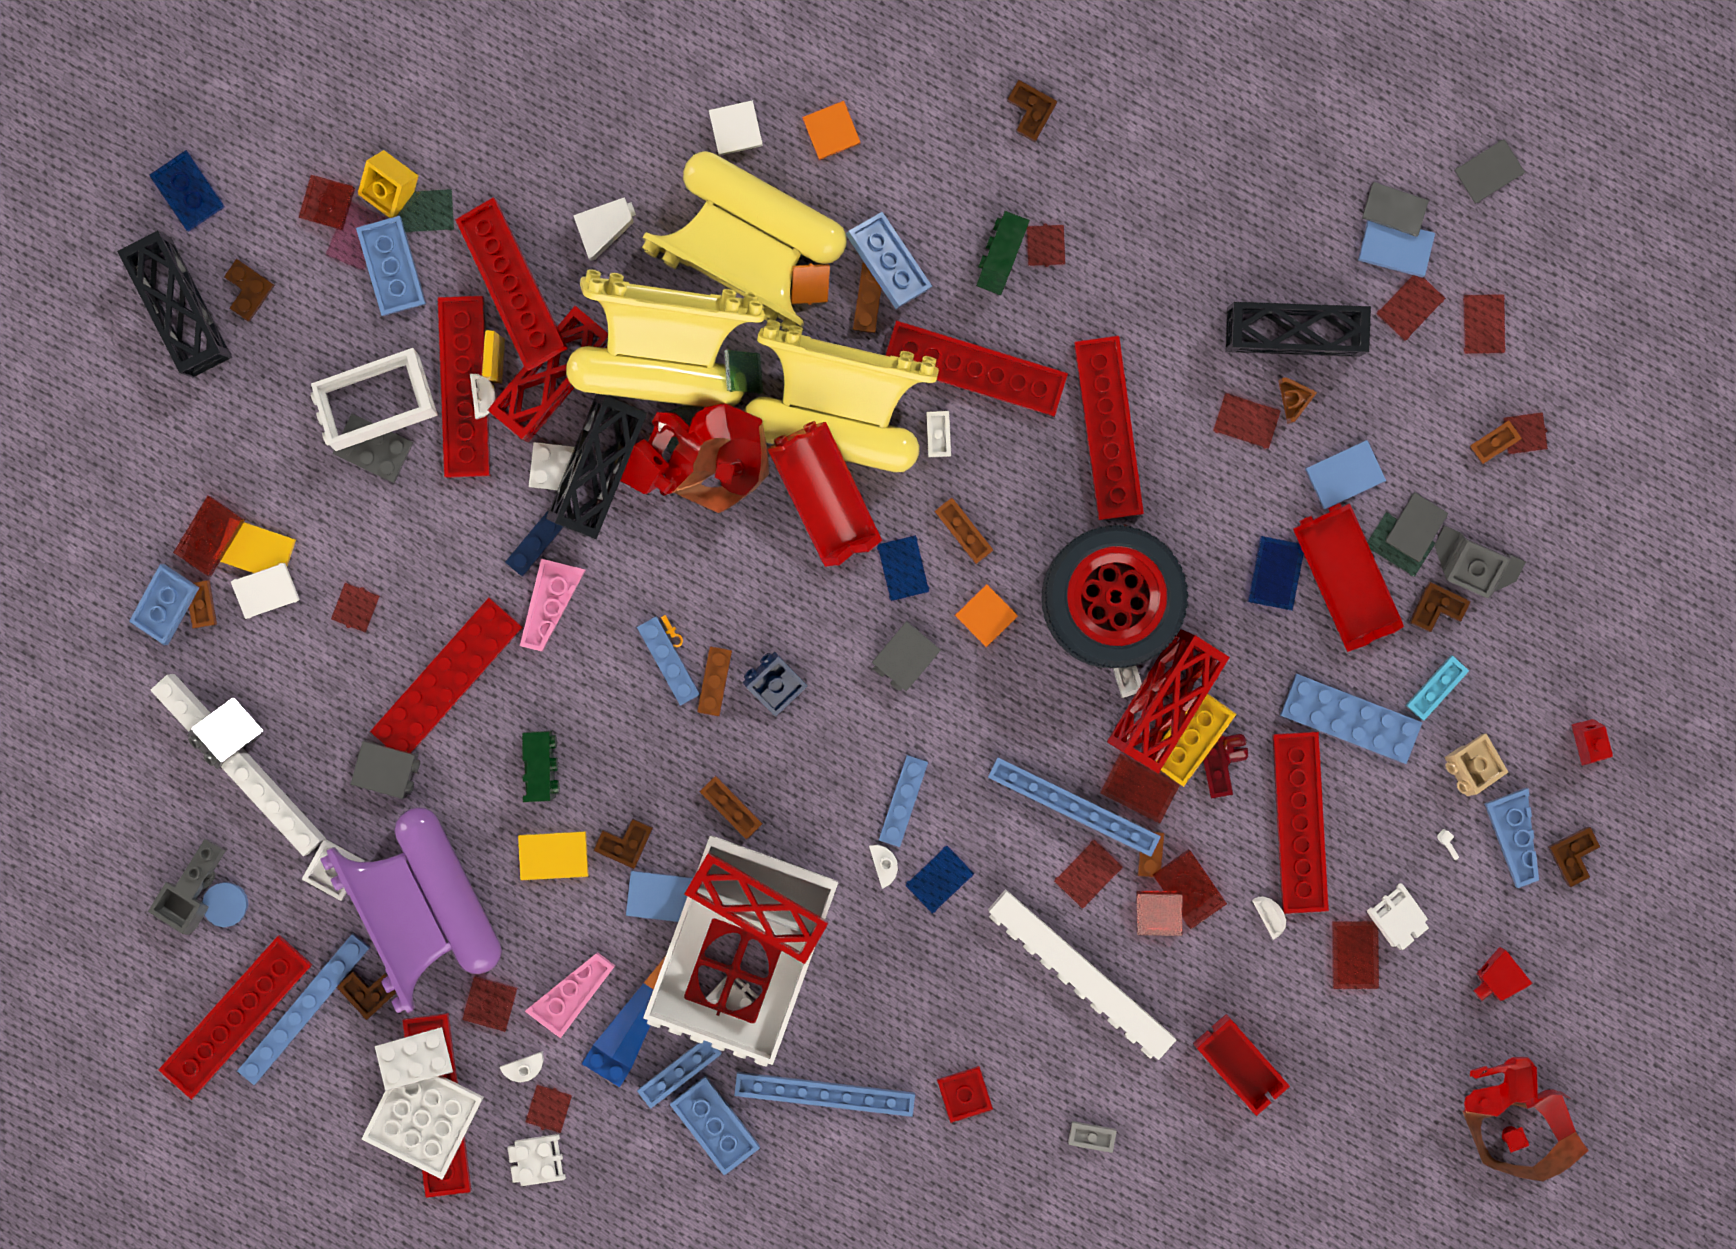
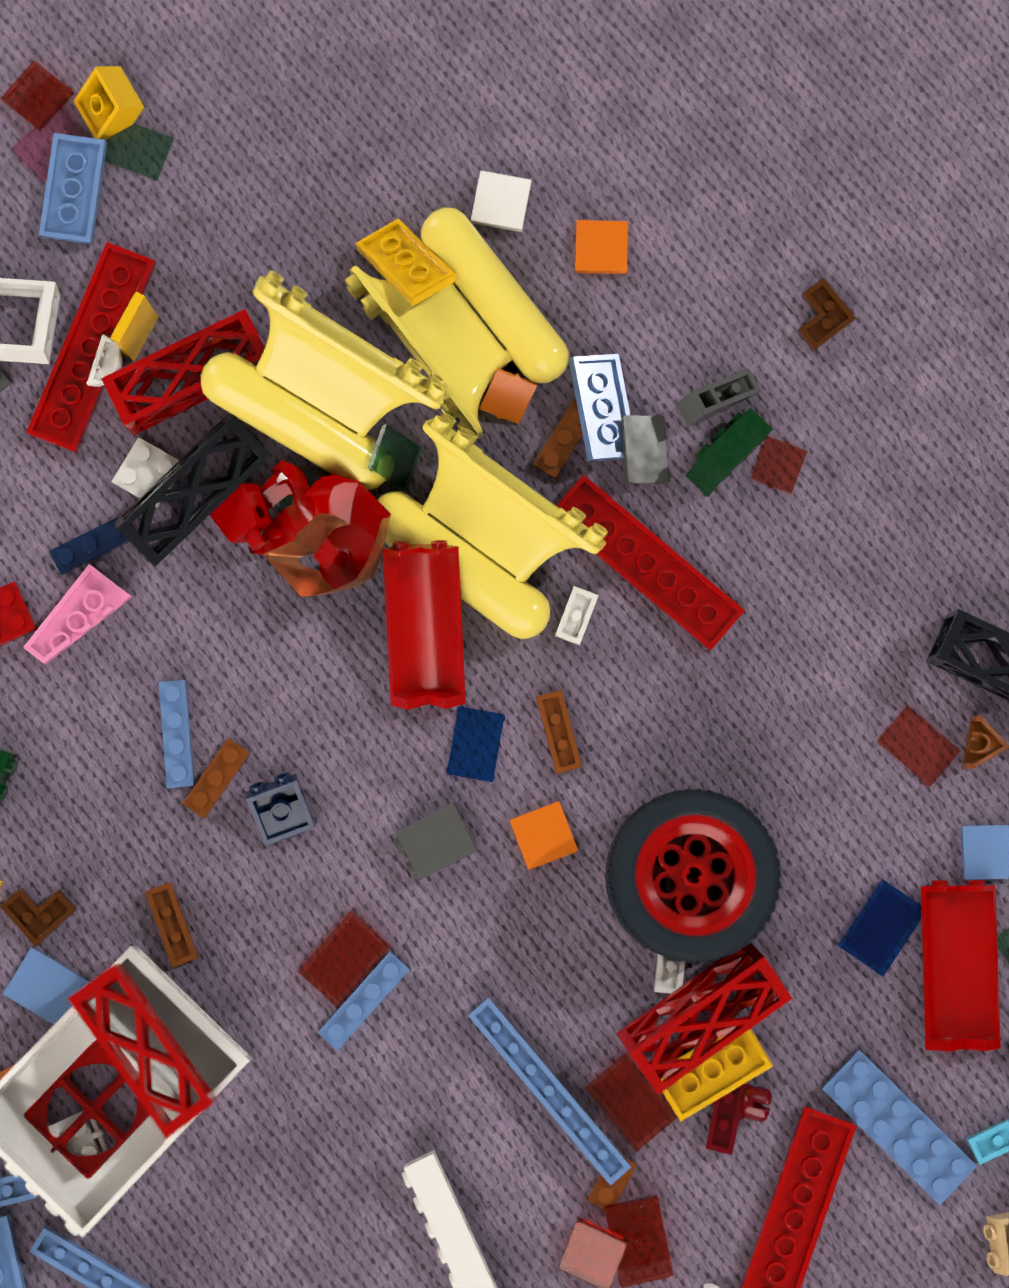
camera: 25 degrees right, 5 degrees down
(511, 284) = (188, 260): red plate -> none
(603, 225) = (316, 242): white slope -> none
(671, 630) = (194, 703): light orange hand -> none
(683, 211) = (406, 262): none -> yellow tile
(874, 775) = (344, 958): none -> clear red tile
(885, 864) = (313, 1062): white plate -> none
(935, 279) = (645, 449): none -> piece
(939, 879) = (365, 1106): clear blue piece -> none
(975, 212) = (717, 397): none -> dark grey slope
(1088, 874) = (533, 1173): clear red piece -> none
(1108, 427) = (764, 689): red plate -> none

